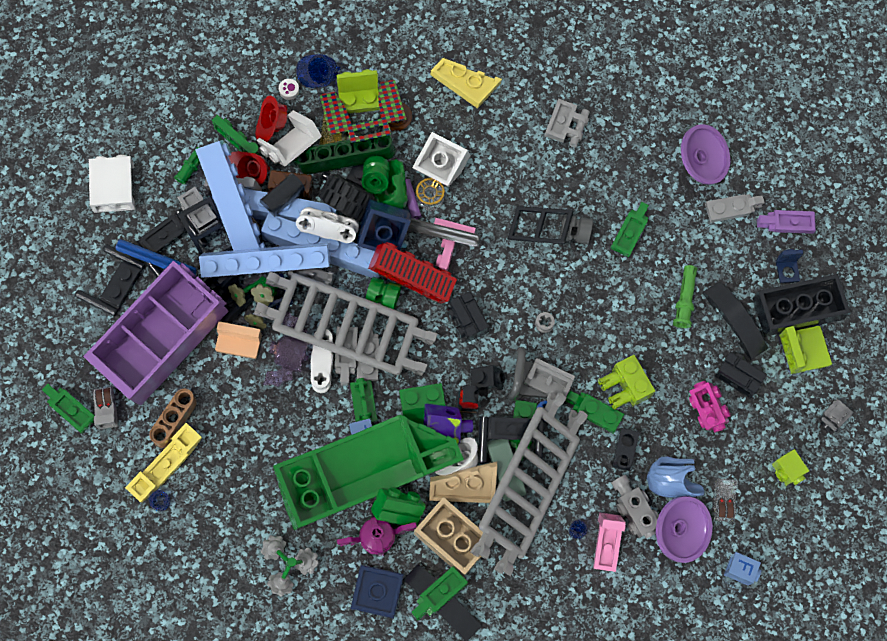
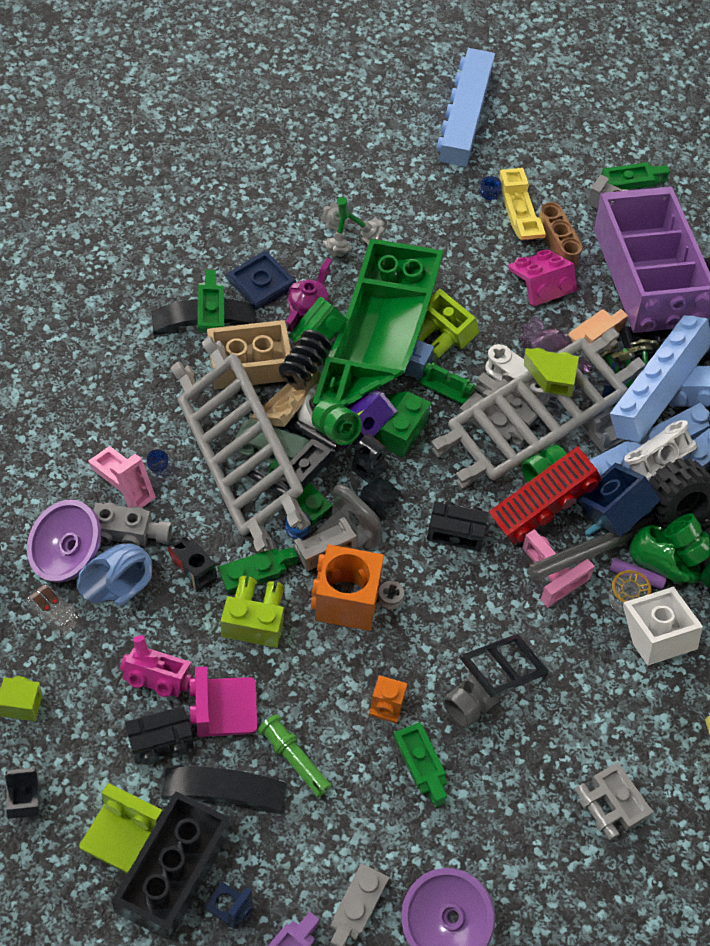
camera: 130 degrees right, 15 degrees down
(87, 575) = (466, 107): none -> light blue brick
(217, 406) = (546, 276): none -> dark pink bracket
(315, 429) = (452, 320): none -> lime brick
(321, 321) = (552, 370): none -> lime slope
(442, 484) = (304, 358): none -> black piece
(472, 426) = (336, 421): none -> green wheel
(575, 323) = (352, 566): none -> orange brick
(613, 272) = (387, 699): none -> orange brick
(693, 356) = (223, 705): none -> dark pink bracket

